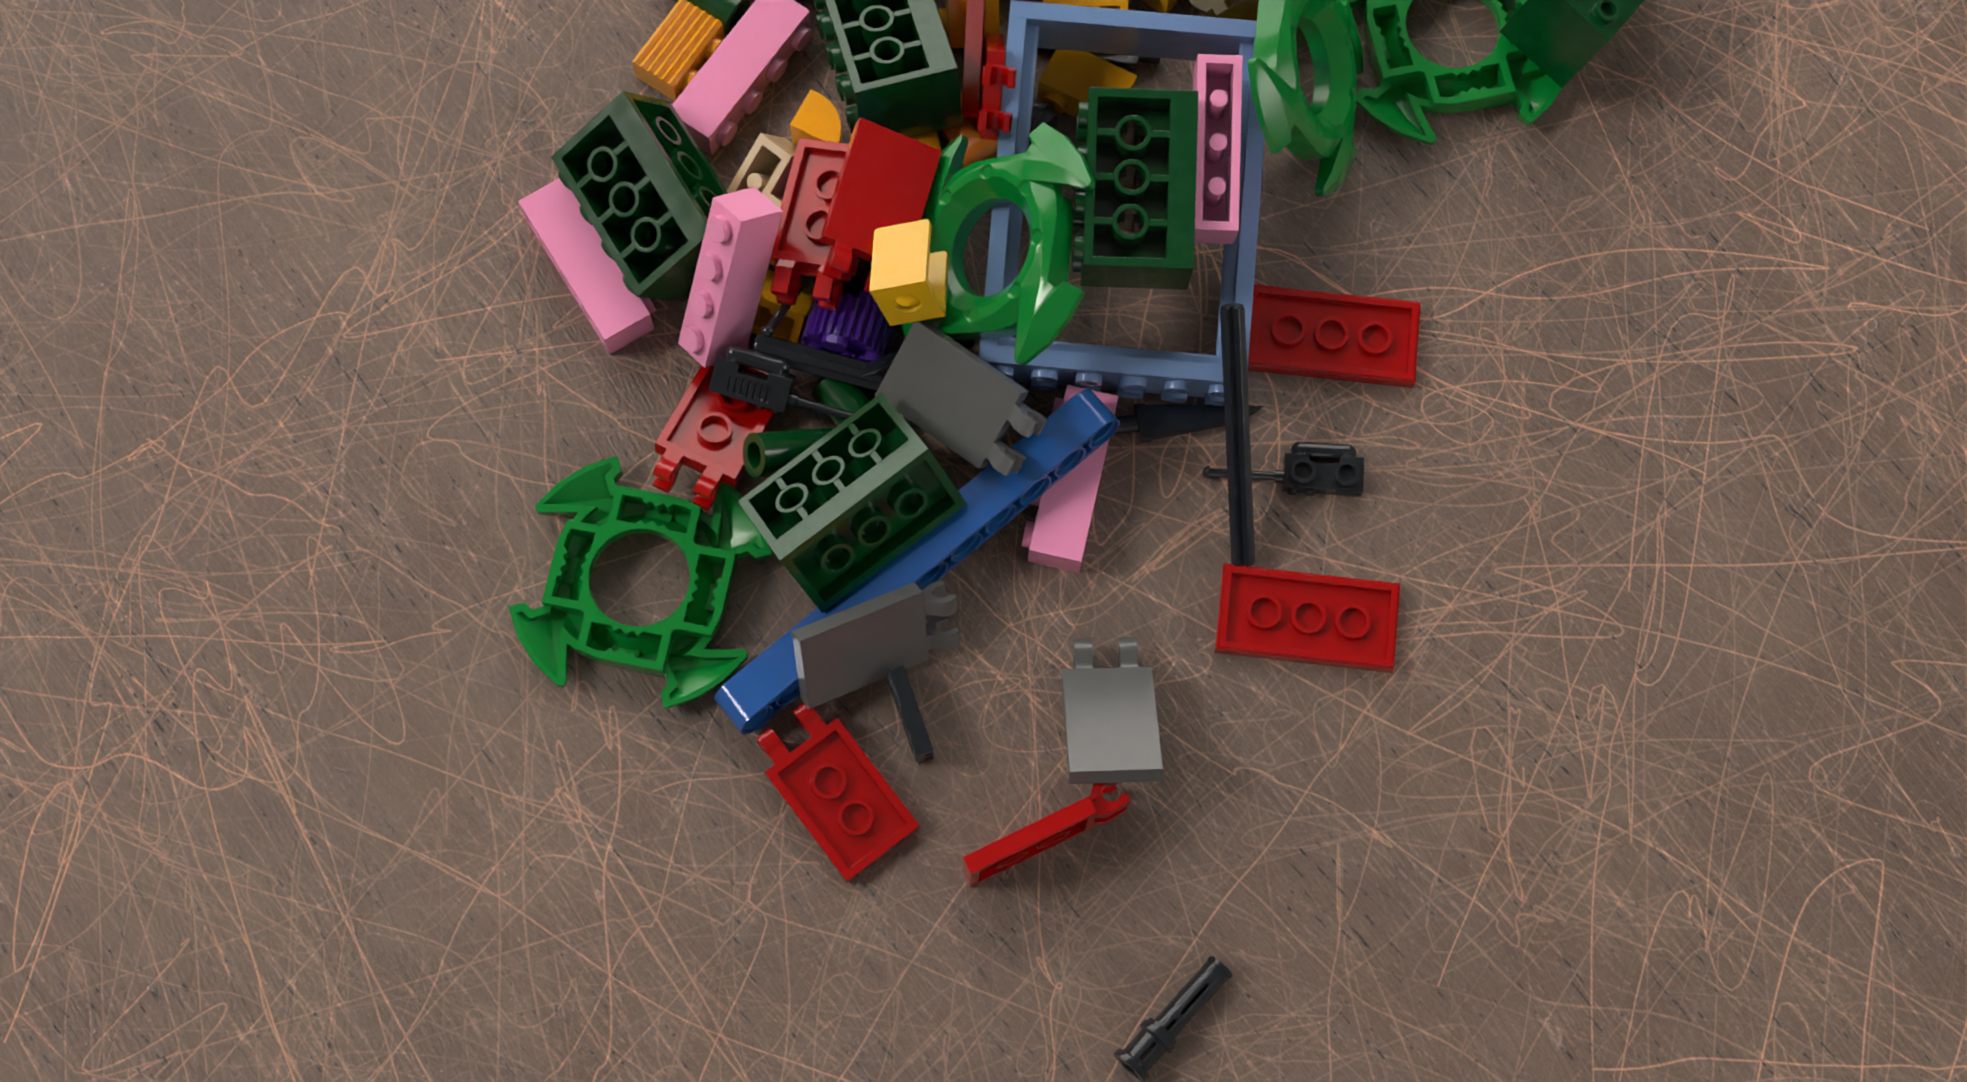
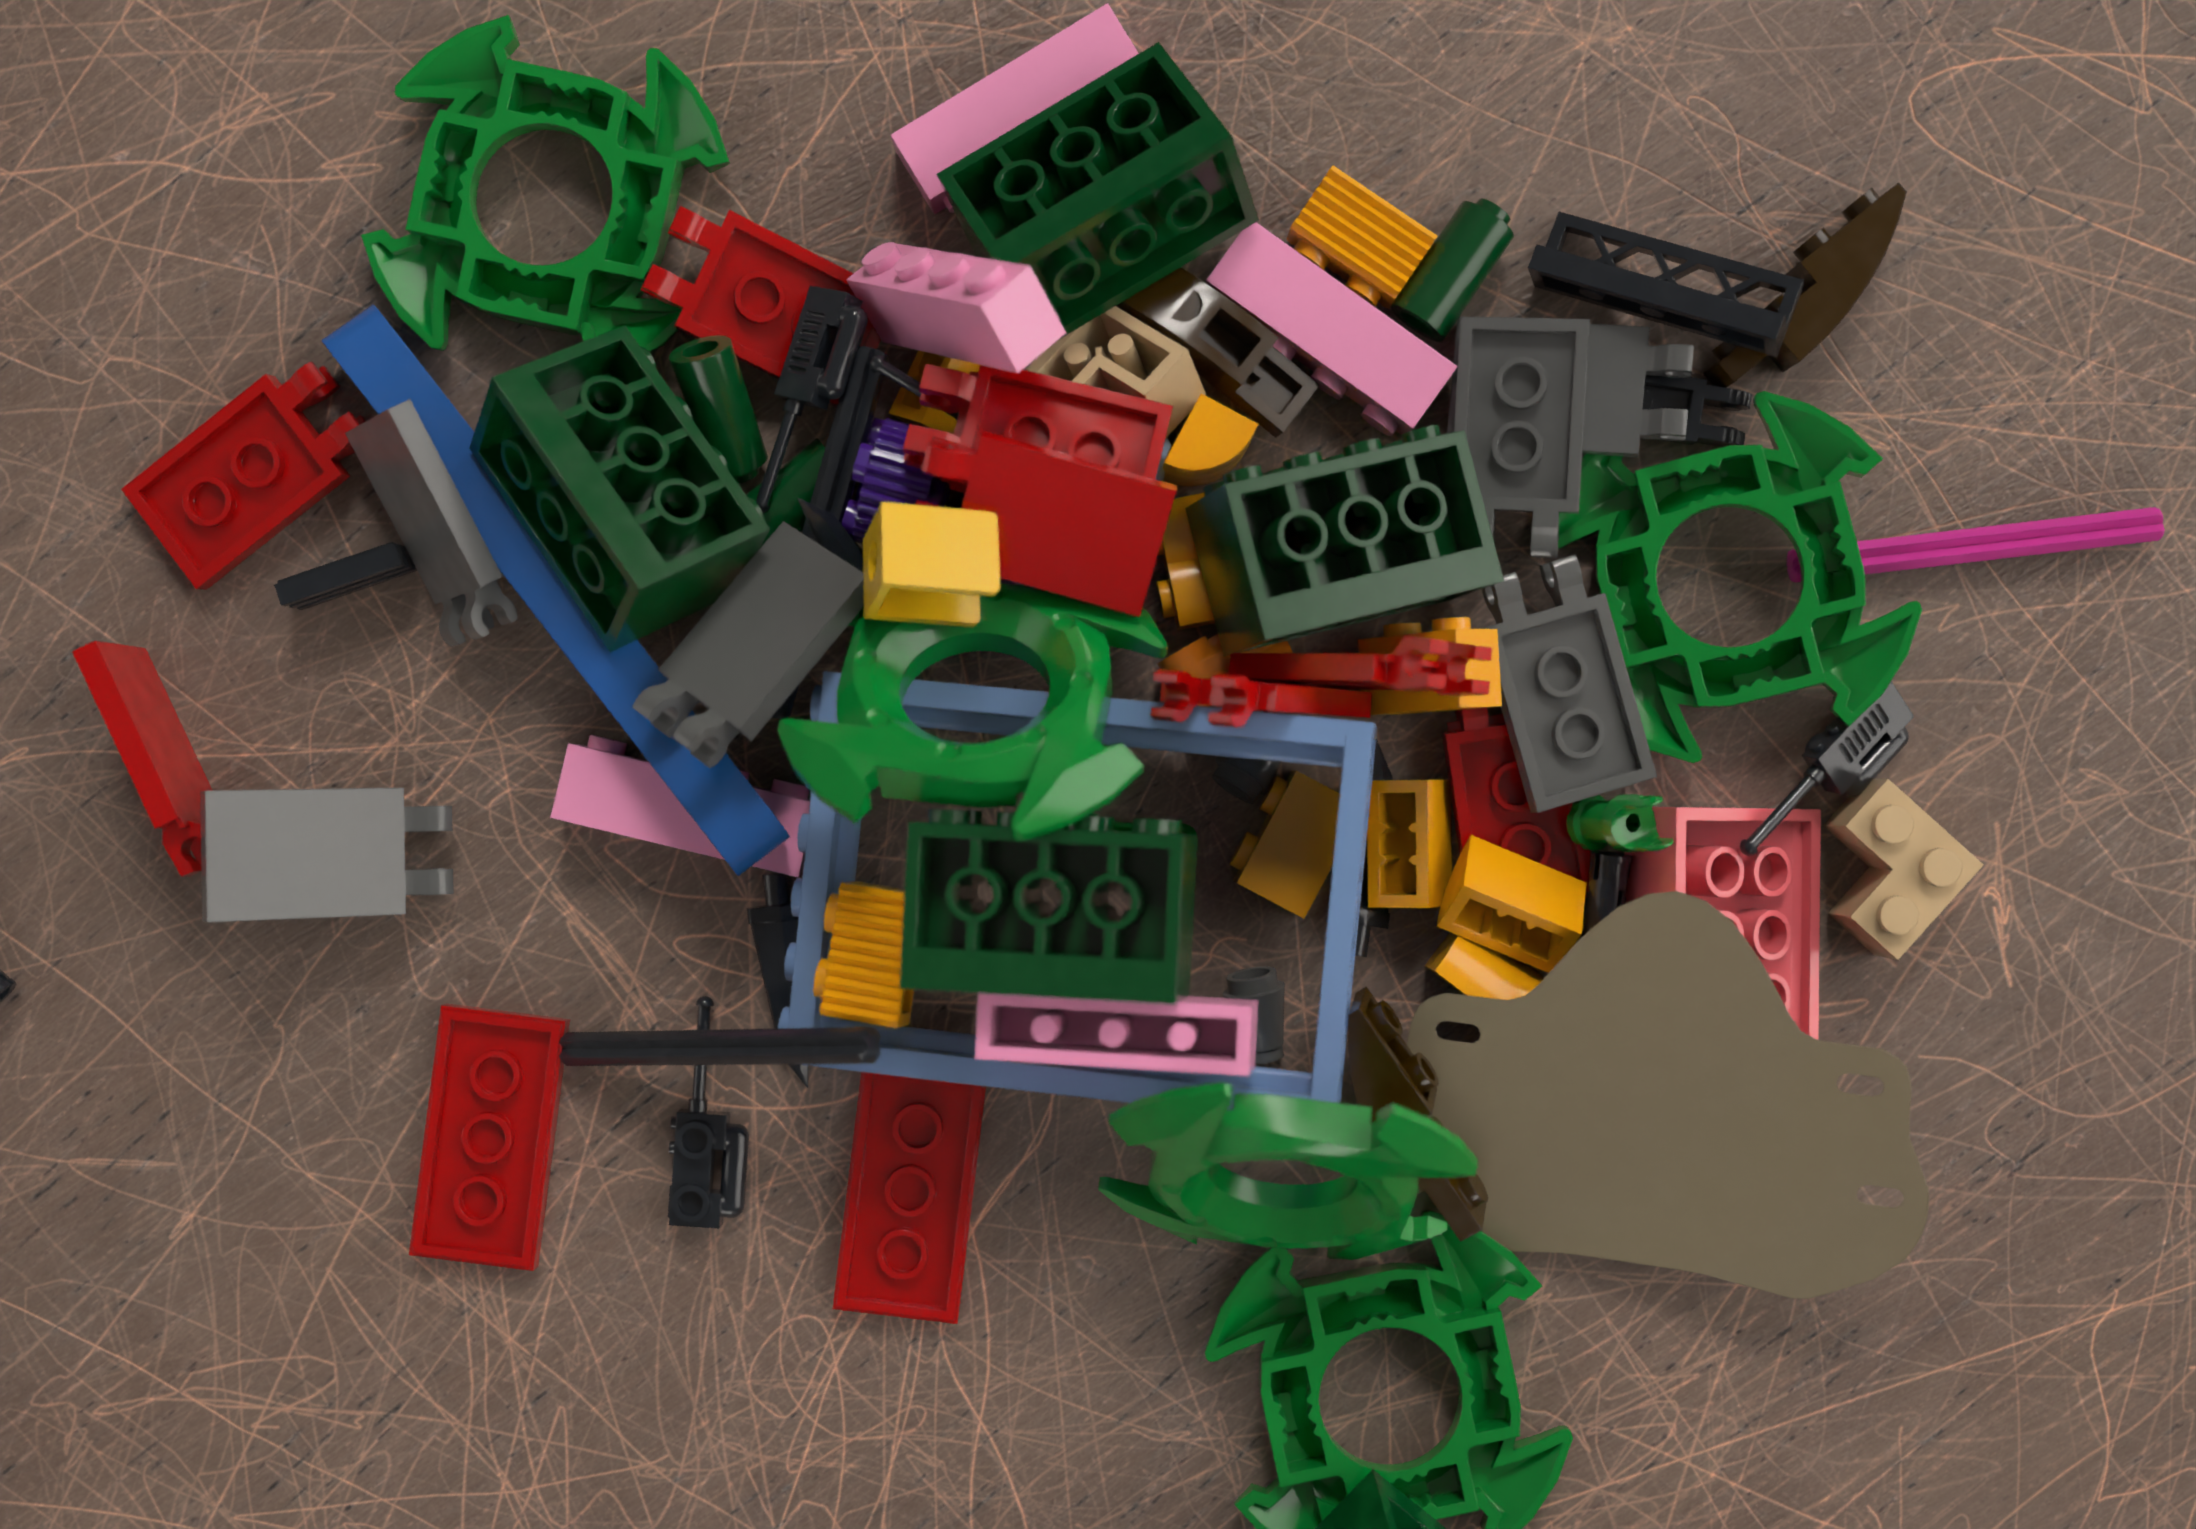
camera: 90 degrees right, 15 degrees up
(754, 114) = (1226, 347): none -> dark brown slope
(1170, 317) = (864, 956): none -> light orange brick

